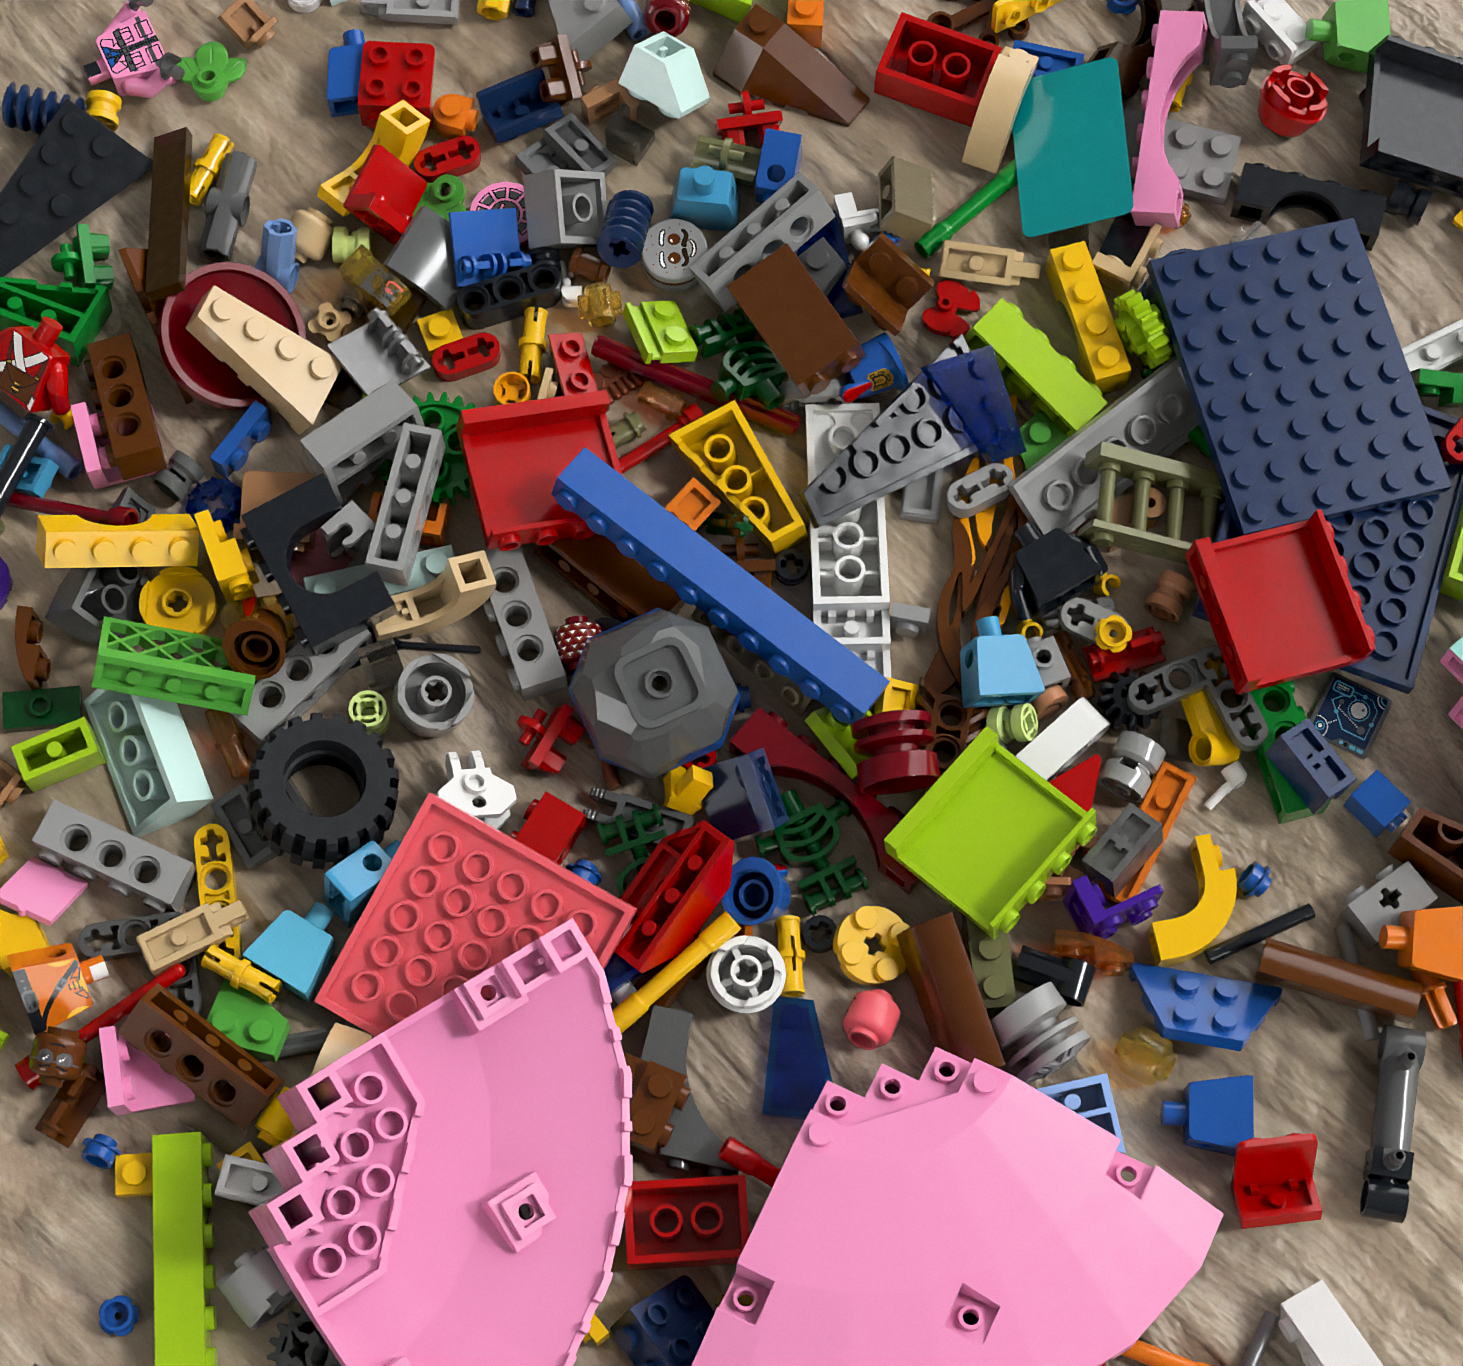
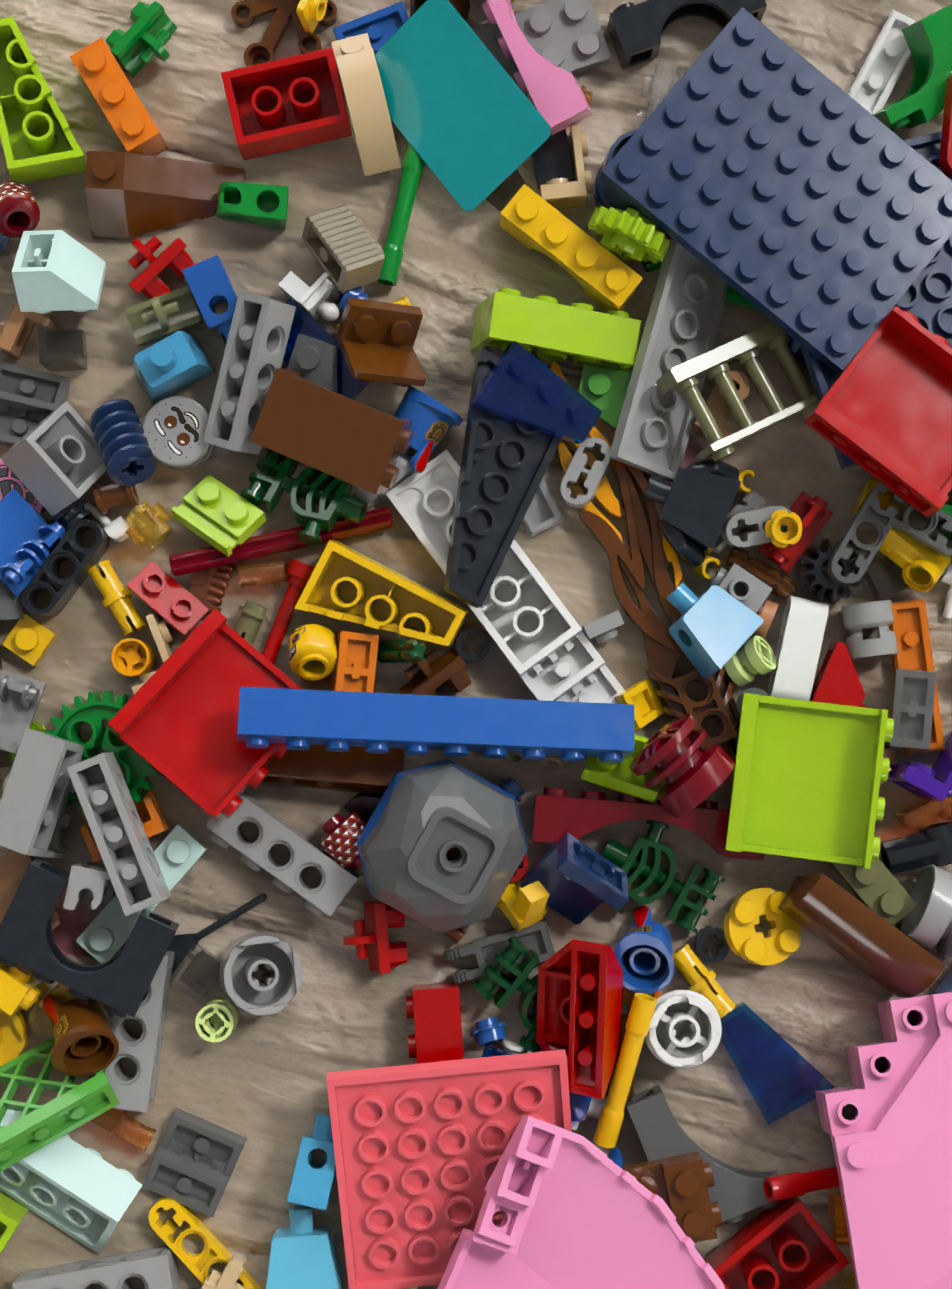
camera: 35 degrees left, 15 degrees up
(331, 744) = (175, 1132): black tyre -> none
(445, 600) = (203, 886): tan arch -> none
(466, 357) = (61, 641): red beam -> none
(478, 790) = (351, 1030): white hinge -> none
(660, 478) = (312, 652): none -> yellow head
(859, 126) = (253, 204): none -> green leg
(871, 1019) = (803, 988): coral head -> none
(942, 317) = (445, 333): red piece -> none
(985, 264) = (449, 259): tan hinge -> none
(1169, 596) = (802, 460): nougat wheel -> none

